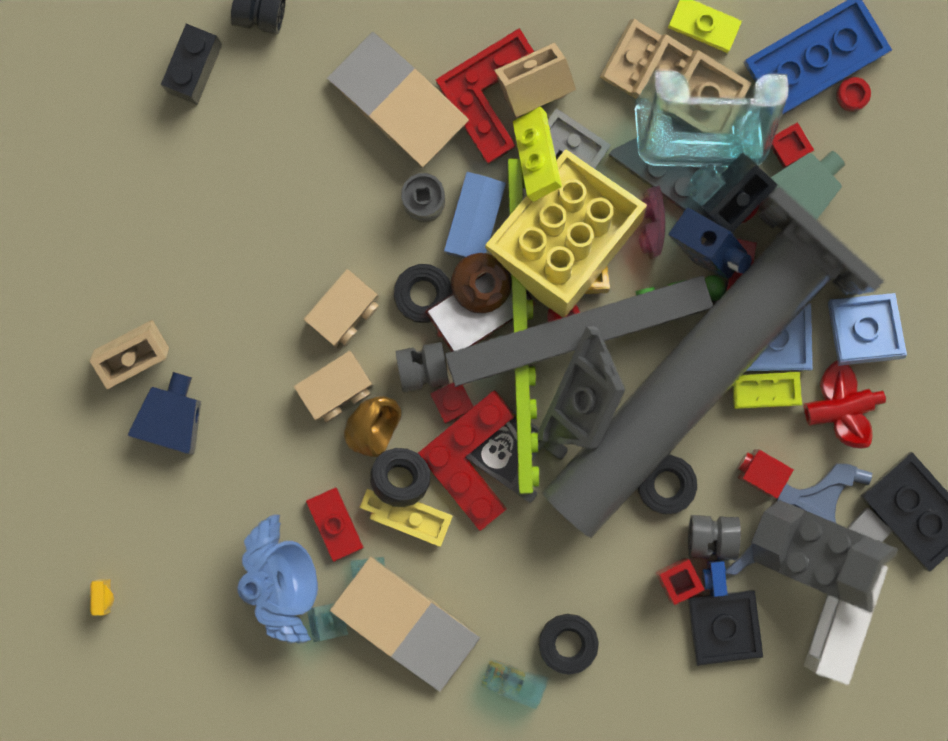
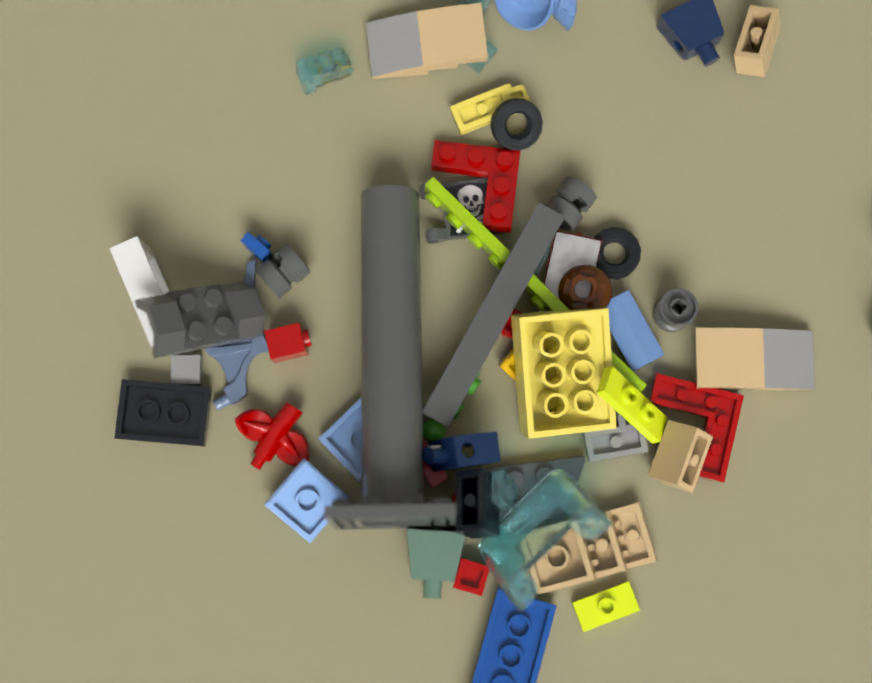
camera: 140 degrees right, 5 degrees down
(334, 386) = (612, 141): tan brick -> none
(334, 524) = (528, 62): red plate -> none
(342, 309) = (655, 193): tan brick -> none
(372, 426) = (564, 139): pearl gold hair -> none
(451, 401) = (527, 201): red plate -> none
(583, 658) = (309, 107): black tyre -> none
(585, 396) = (450, 274): dark grey wing -> none
(653, 234) = (505, 429): clear pink slope -> none
(680, 581) = (279, 222): red brick -> none
(683, 497) = (326, 274): black tyre -> none
(725, 627) = (222, 224): black tile -> none
(767, 390) = (335, 398): neon yellow plate -> none
(853, 94) = (461, 654): red tile -> none

